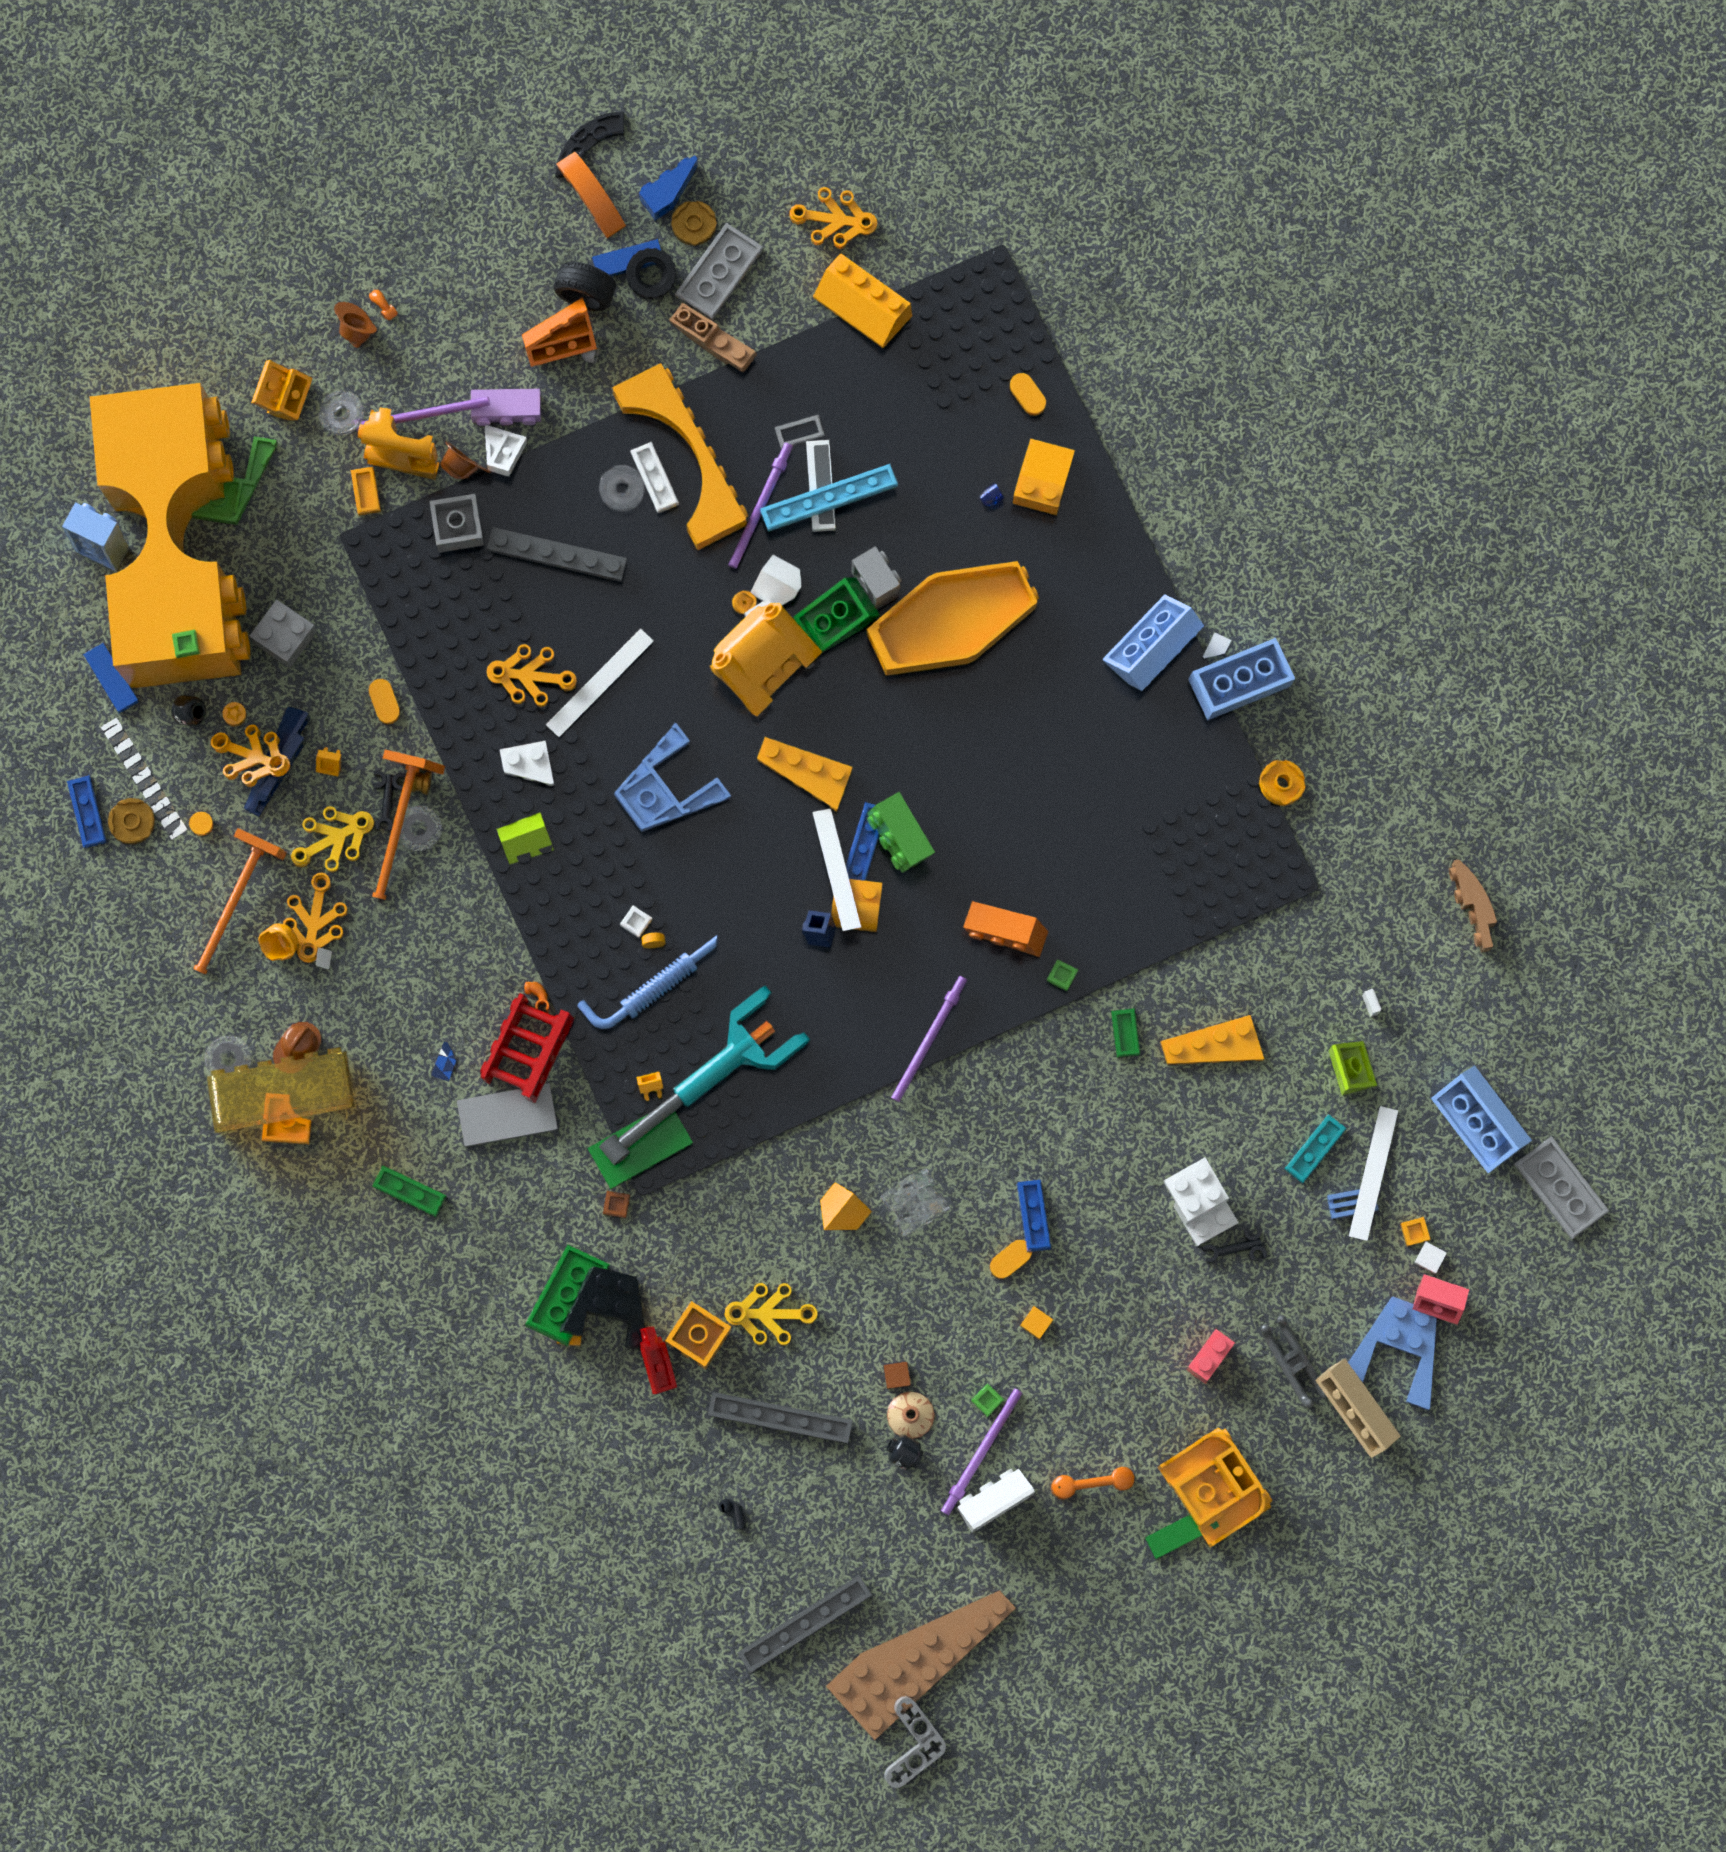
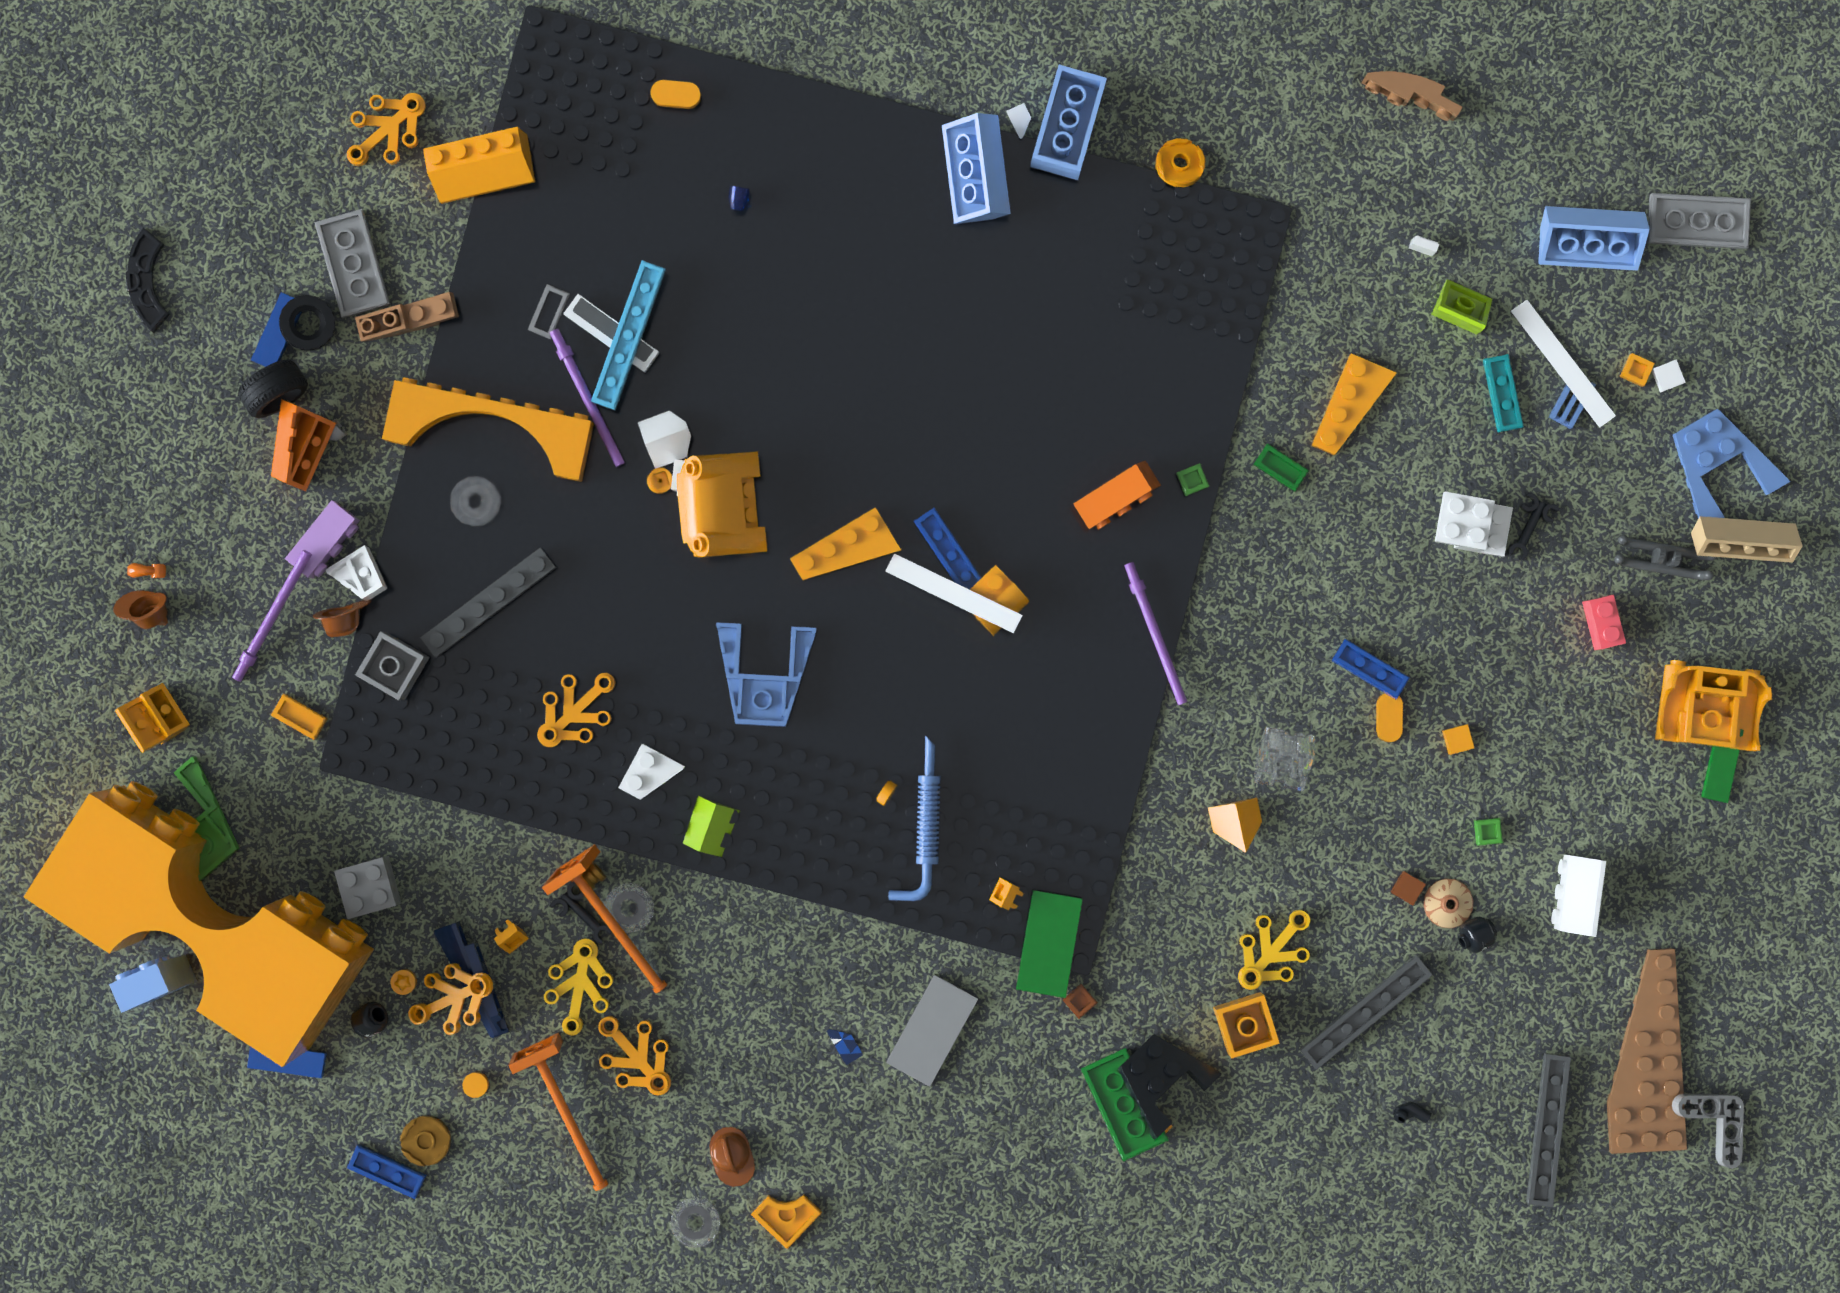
camera: 45 degrees left, 10 degrees up
(144, 778) = (396, 1100): sticker -> none
(186, 644) = (314, 991): bright green tile -> none
(278, 942) = (632, 1103): light orange hair -> none
(281, 1090) = (762, 1204): clear yellow windscreen -> none
(323, 958) = (674, 1075): white sticker -> none
(346, 423) = (226, 678): clear tile -> none
(384, 701) = (495, 848): light orange tile -> none
(397, 452) = (274, 673): light orange piece -> none
(409, 1191) = (929, 1161): green tile -> none
(539, 991) = (847, 920): orange arm -> none
(540, 1065) = (904, 950): red fence -> none
(592, 194) = (195, 315): orange slope -> none
(599, 682) = (628, 656): white sticker -> none
(636, 921) = (858, 793): white tile -> none
(654, 477) = (489, 466): white tile -> none
(657, 1361) = (1238, 1075): red hinge -> none
(666, 191) = (245, 253): blue slope -> none
(687, 225) = (289, 256): pearl gold tile -> none
(740, 1050) = (1038, 797): teal piece -> none
(819, 928) = (991, 649): dark blue brick -> none
(837, 614) = (735, 412): green slope -> none
(876, 577) = (732, 353): light grey brick -> none
(900, 833) = (967, 515): bright green brick -> none
(952, 618) = (818, 318): light orange container -> none
(957, 1491) = (1542, 917): medium lavender bar -> none
(1043, 476) = (758, 140): light orange slope -> none
(1121, 1479) = (1640, 777): orange piece -> none
(1440, 1299) = (1712, 396): coral brick -> none

